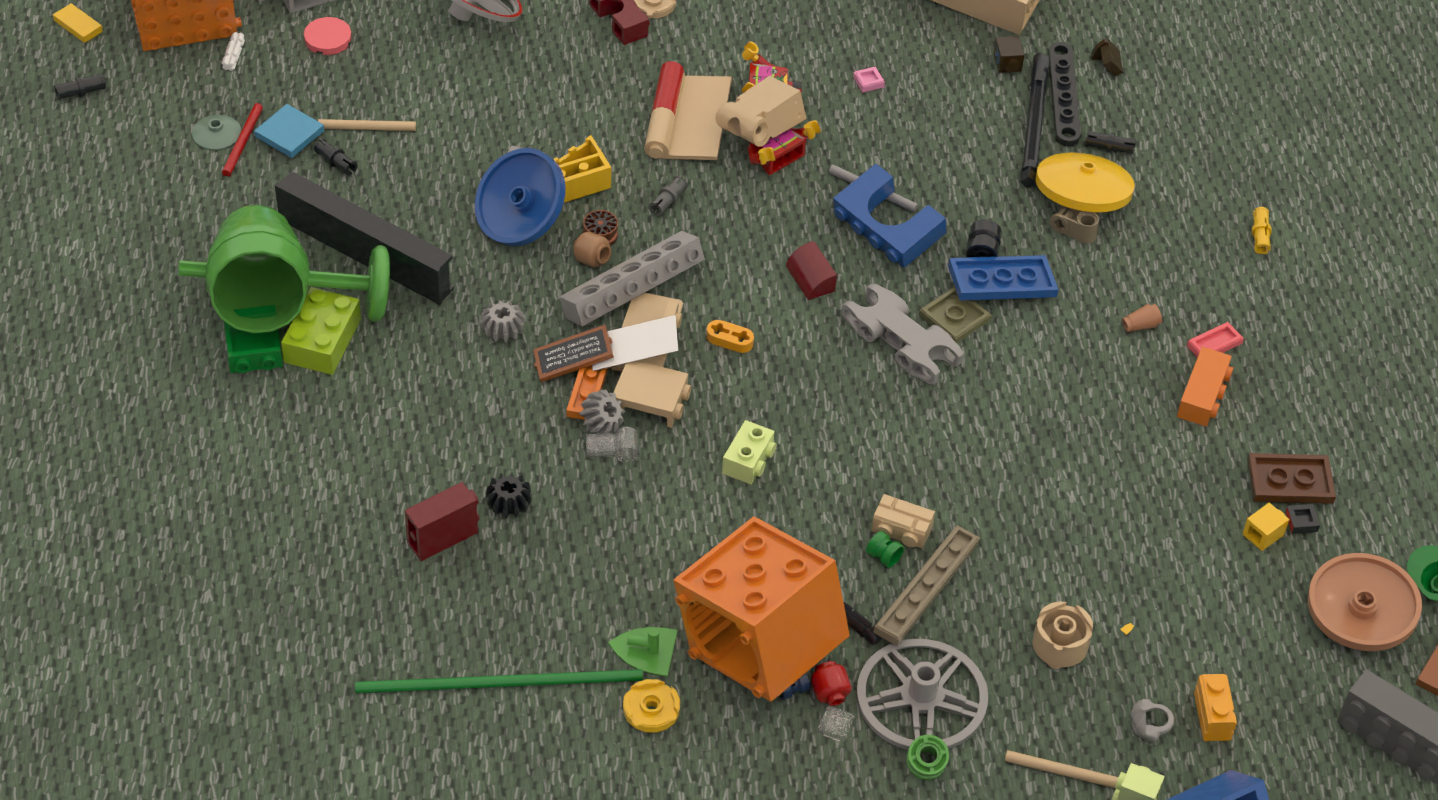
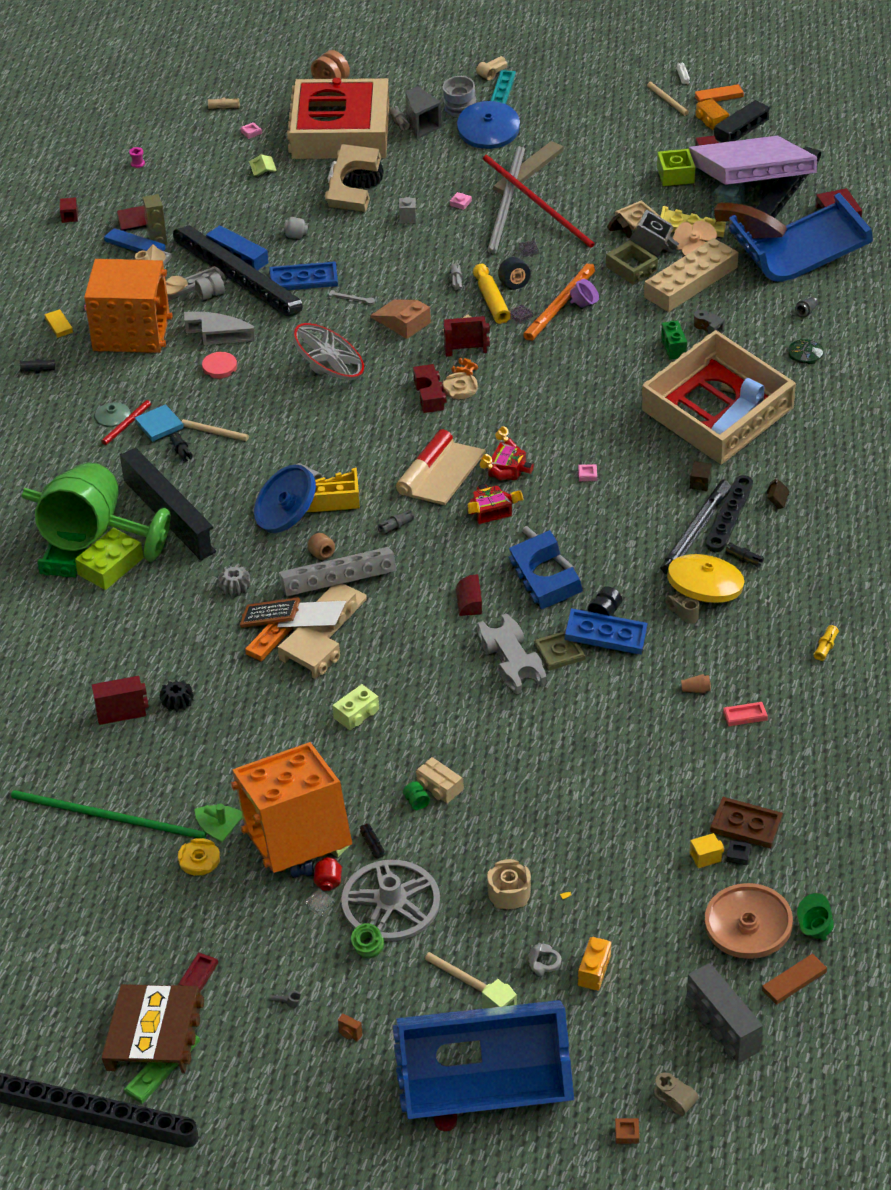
camera: 25 degrees right, 5 degrees down
(233, 51) = (150, 362): white axle -> none
(601, 225) = (337, 532): copper wheel -> none
(602, 412) = (271, 652): light grey gear -> none
(621, 444) = (270, 681): clear piece -> none
(730, 336) = (387, 628): light orange beam -> none
(763, 111) = (485, 477): tan piece -> none
(926, 585) = (433, 827): dark tan tile -> none
(1205, 387) = (716, 742): orange brick -> none

